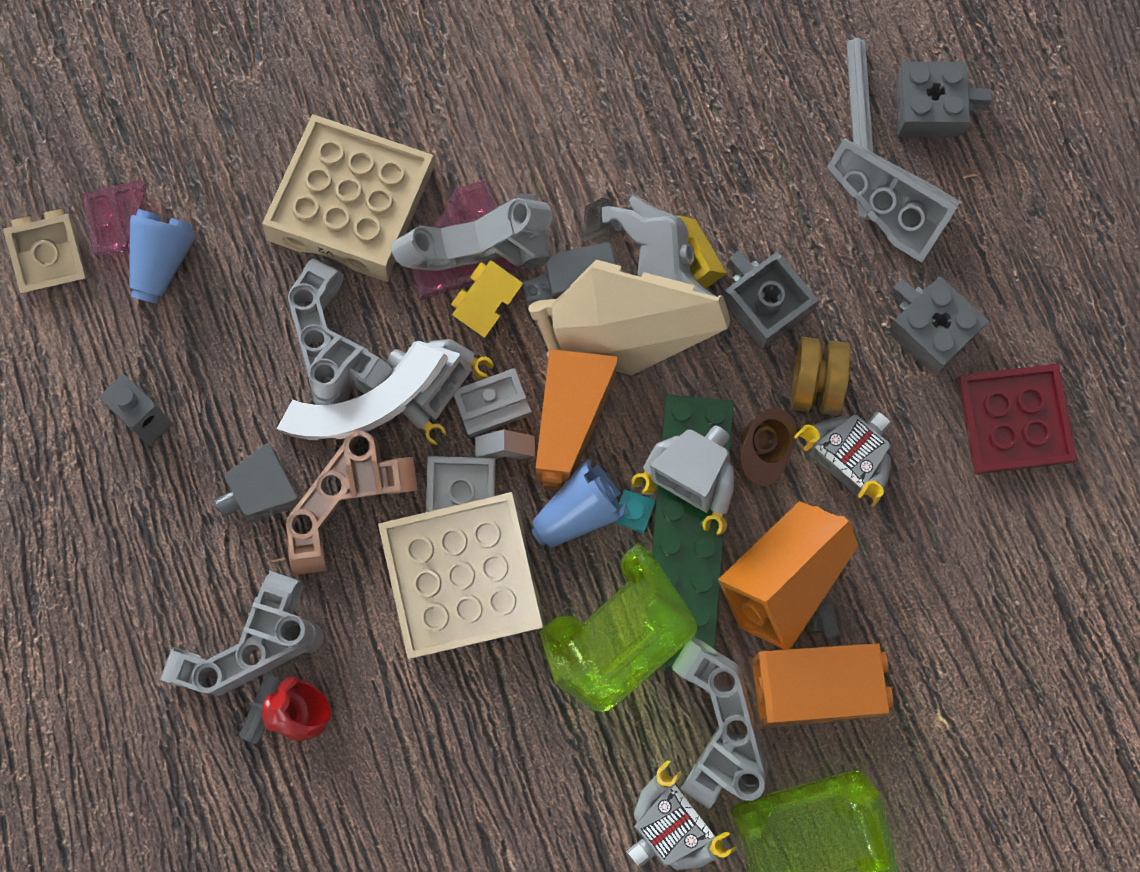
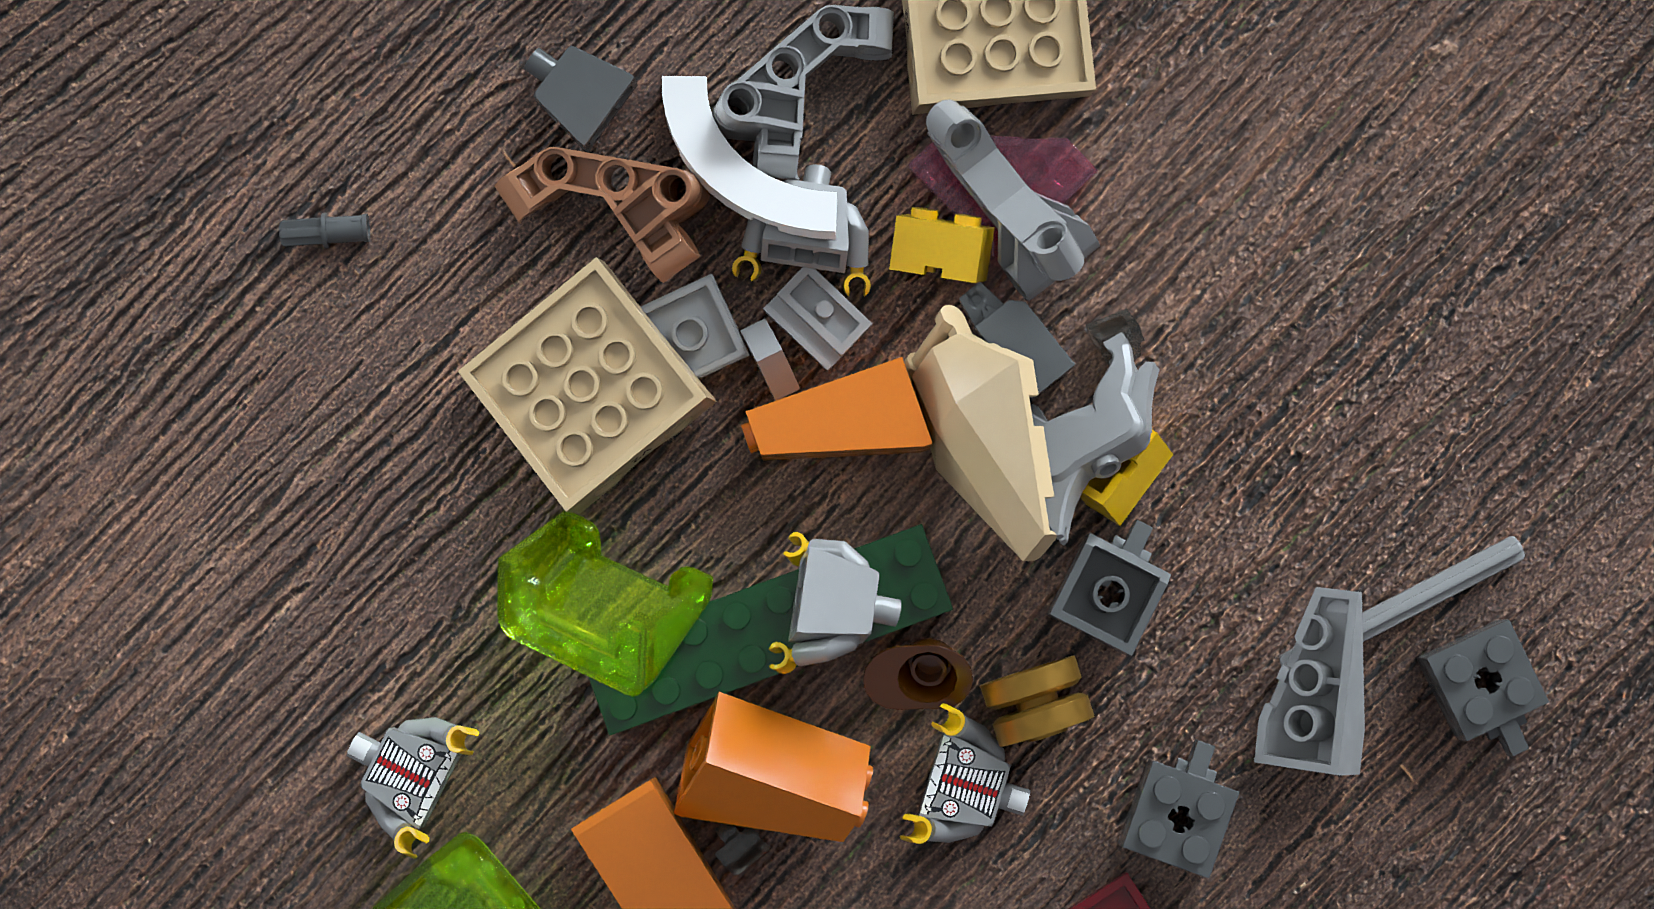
camera: 65 degrees right, 10 degrees up
(268, 627) = (416, 193): light grey connector -> none
(296, 710) = (337, 272): red hair -> none
(579, 507) = (736, 486): medium blue cone -> none
(639, 511) = (765, 552): teal plate -> none
(727, 754) = (514, 805): light grey connector -> none

